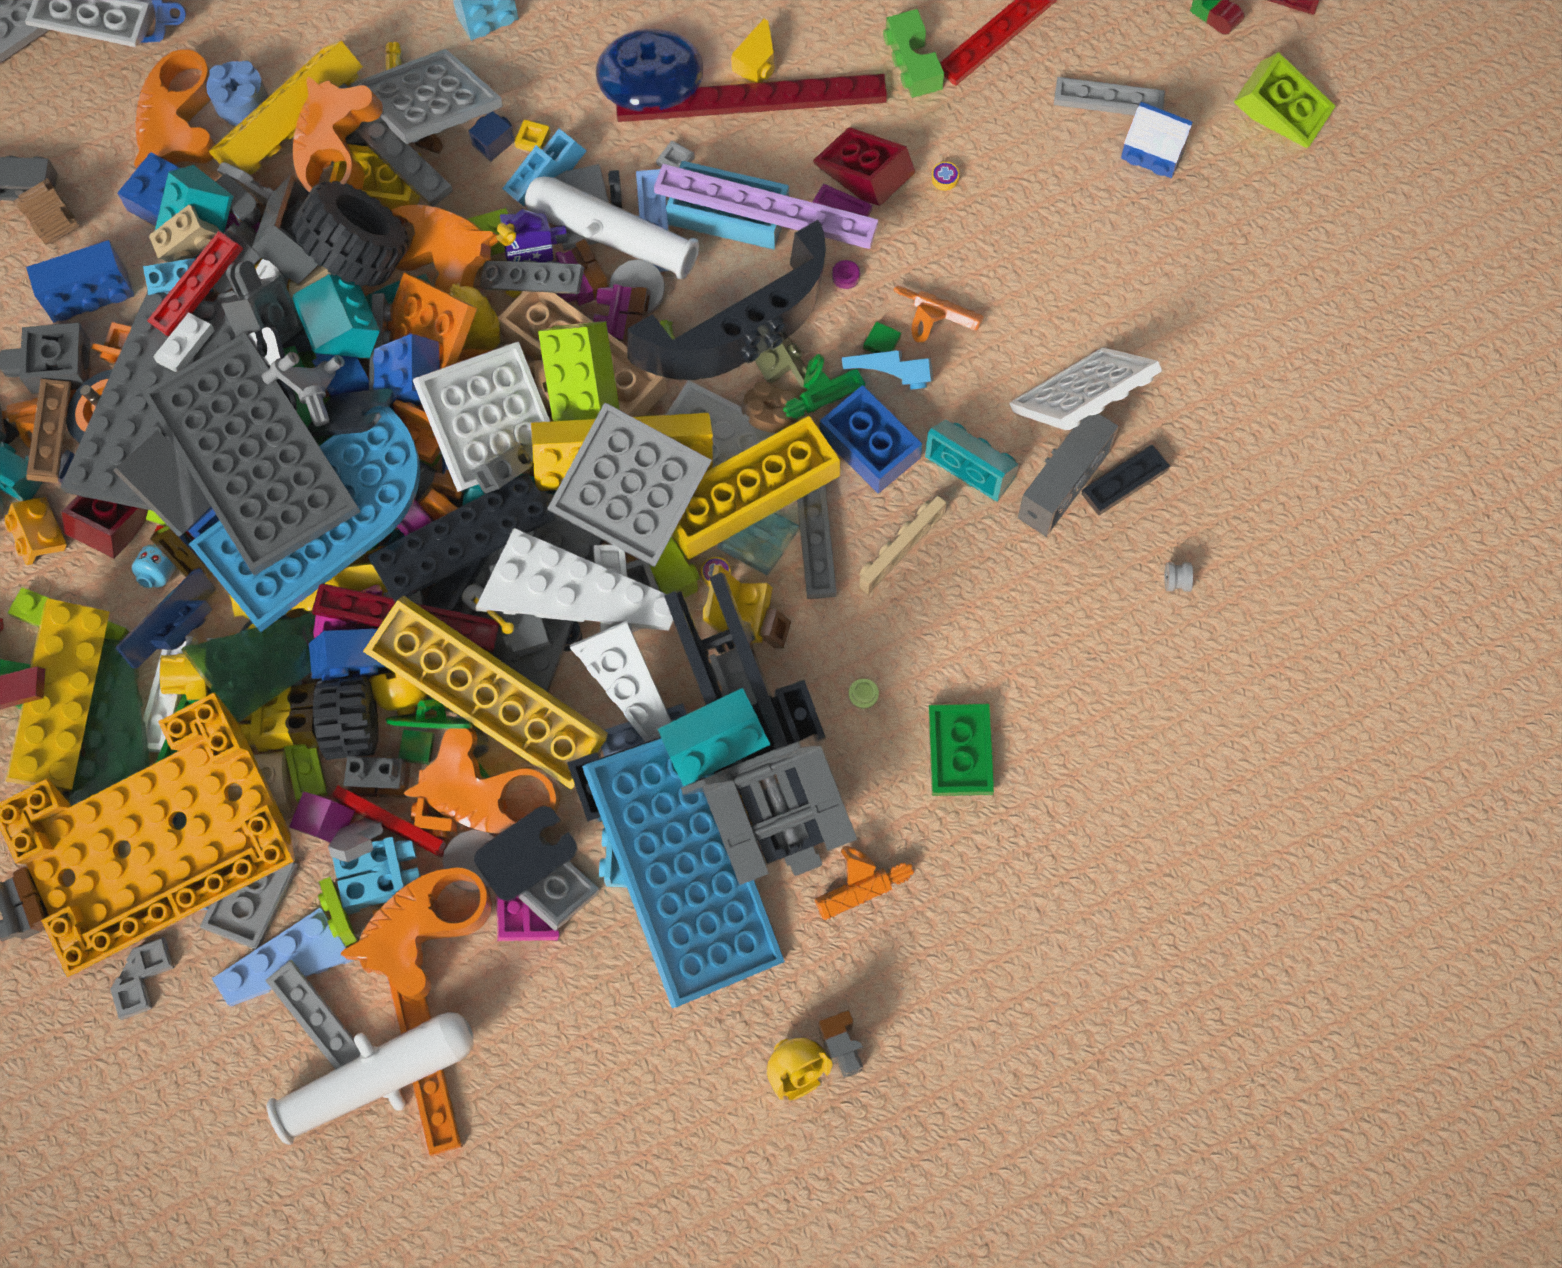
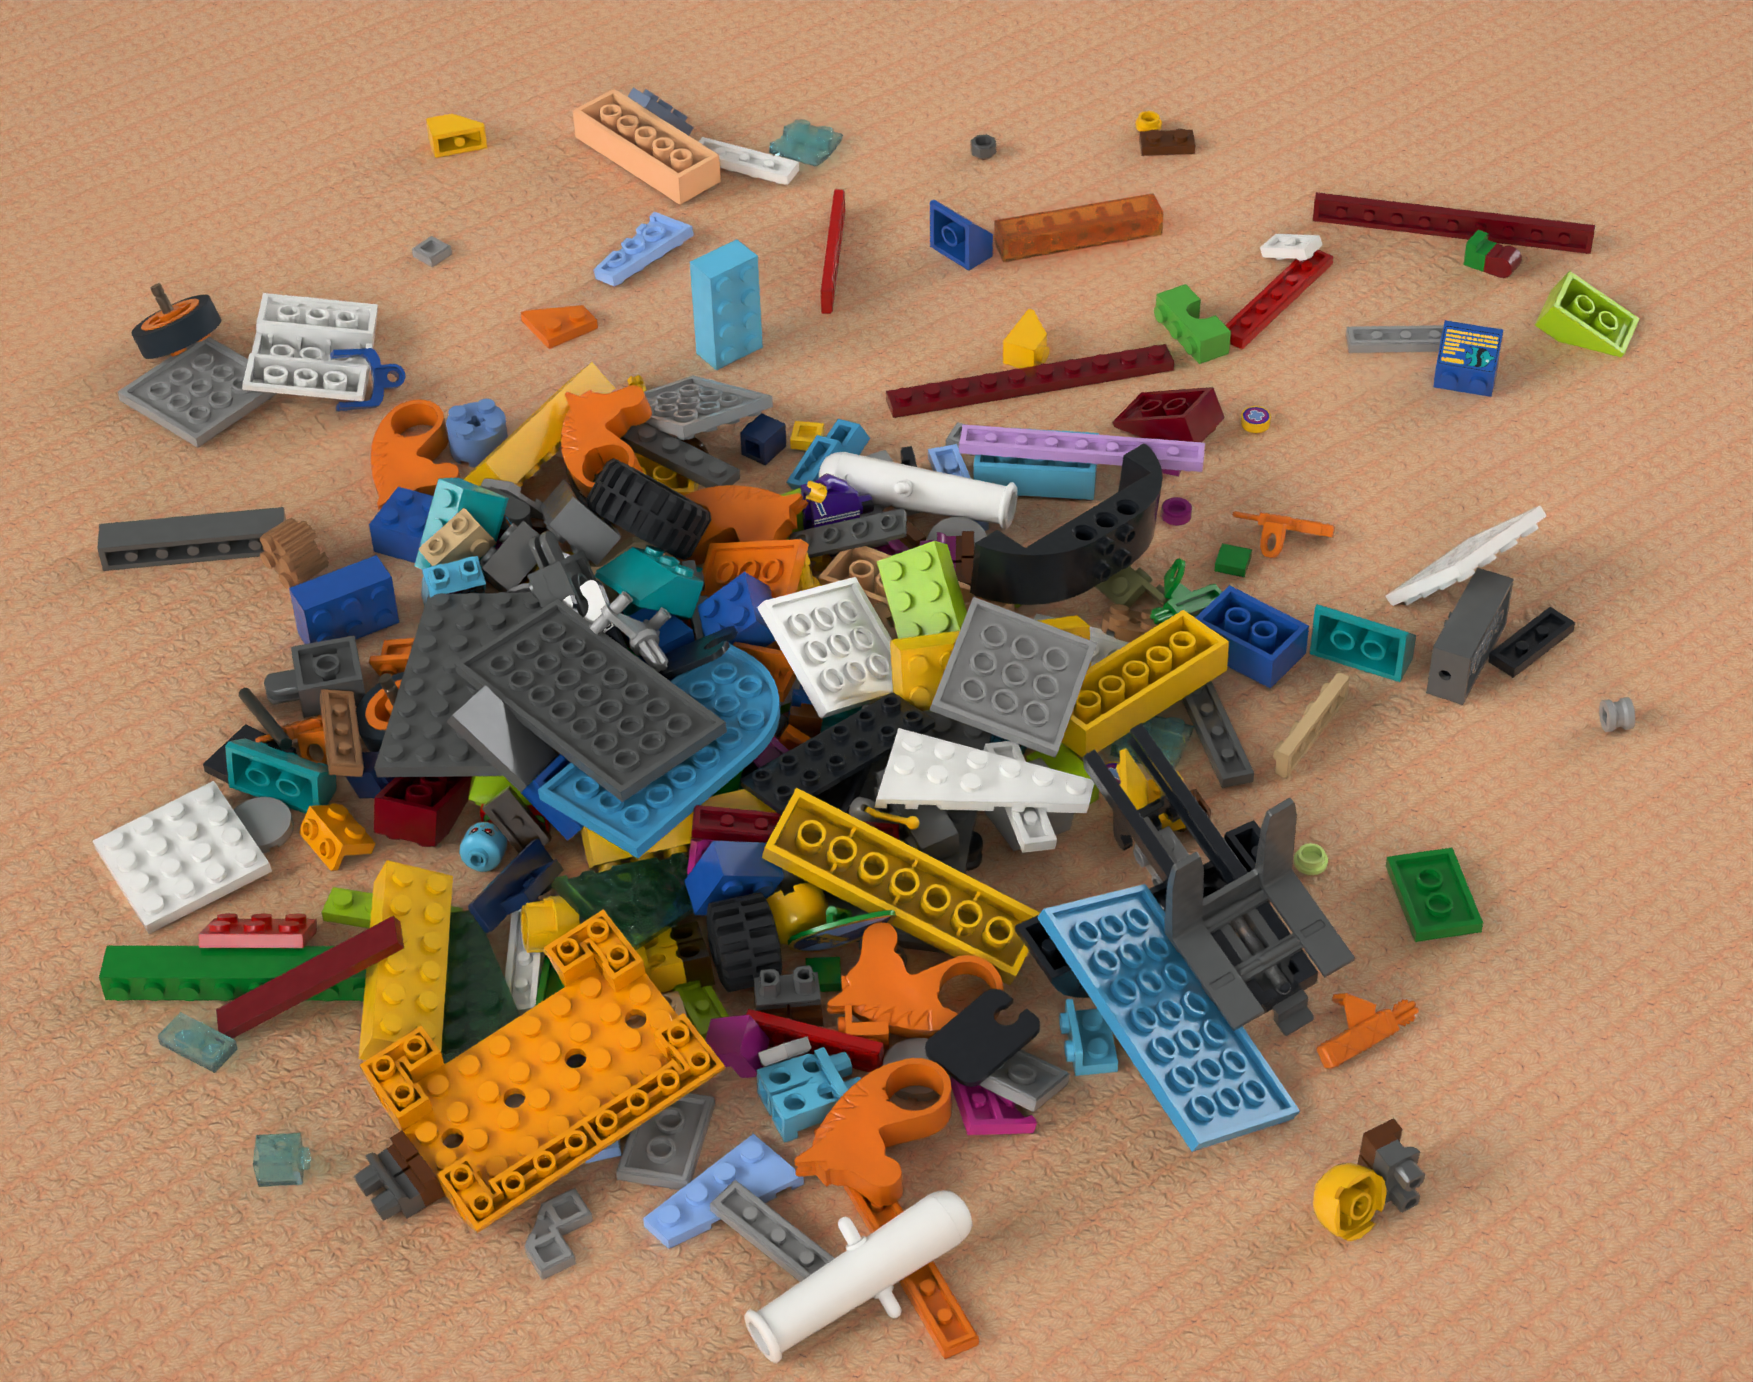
camera: 10 degrees left, 25 degrees down
(184, 343) = (486, 623): white plate -> none
(195, 283) = (487, 572): red tile -> none
(340, 923) = (776, 1128): lime plate -> none
(502, 468) = (865, 689): dark grey leg -> none
(623, 673) = (1048, 850): white wing -> none
(649, 69) = (917, 364): clear blue brick -> none
(713, 737) = (1145, 882): teal slope -> none
(911, 372) = (1275, 576): dark azure slope -> none

